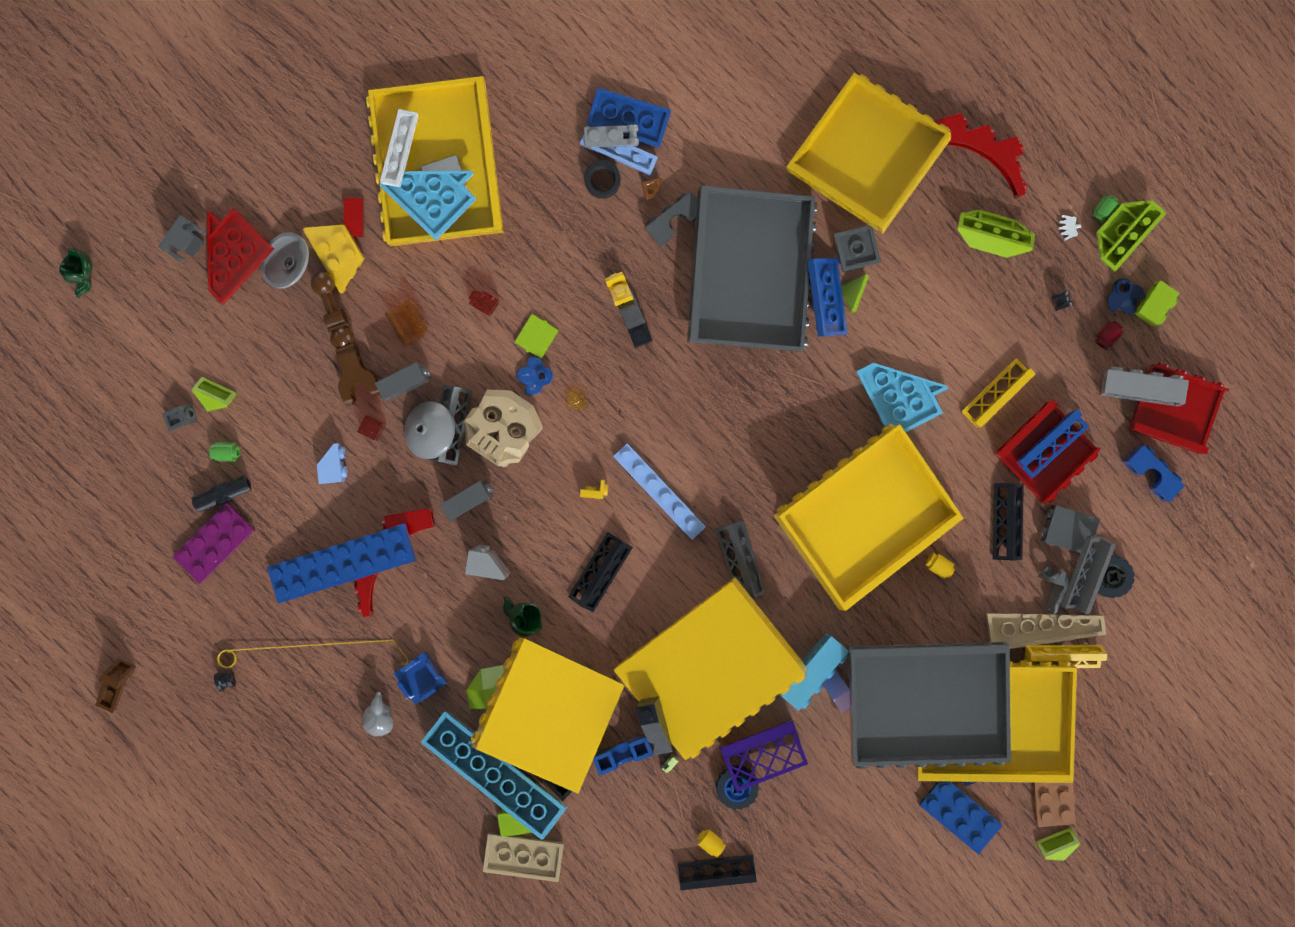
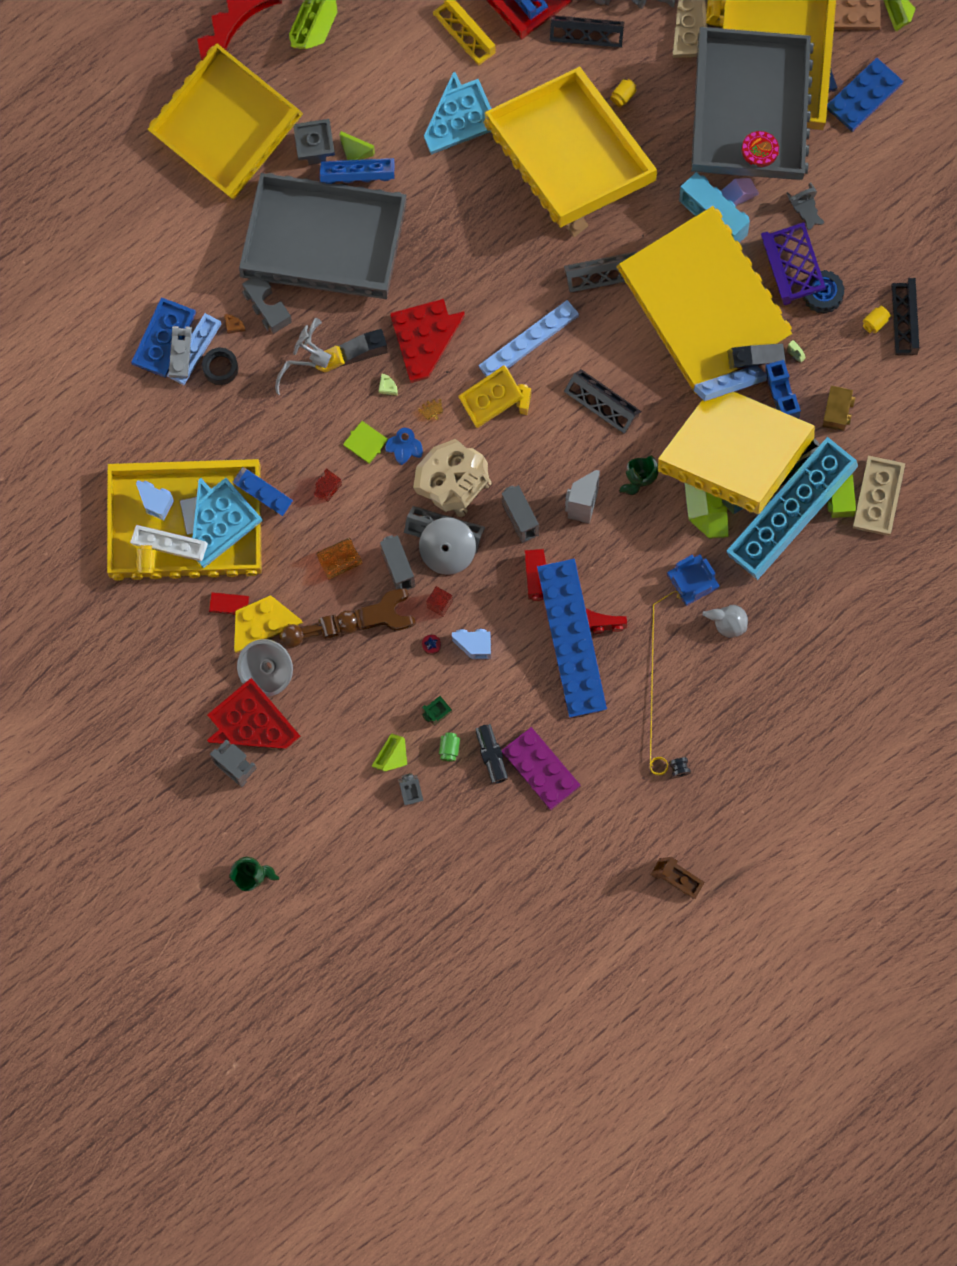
camera: 75 degrees left, 15 degrees down
(259, 434) = (436, 711): none -> dark green bracket
(330, 423) = (431, 644): none -> dark red tile
(380, 126) = (145, 559): none -> yellow brick
(445, 126) = (155, 501): none -> light blue slope
(469, 224) = (262, 491): none -> blue arch
(592, 459) = (491, 396): none -> yellow tile
(598, 352) = (387, 386): none -> yellowish green tile
(612, 811) = (838, 407): none -> pearl gold brick
(614, 277) = (318, 356): none -> light grey plant
(622, 698) = (730, 382): none -> medium blue plate
(655, 384) = (424, 335): none -> red wing
(830, 762) = (805, 205): none -> dark grey hair
(874, 718) = (760, 148): none -> red tile

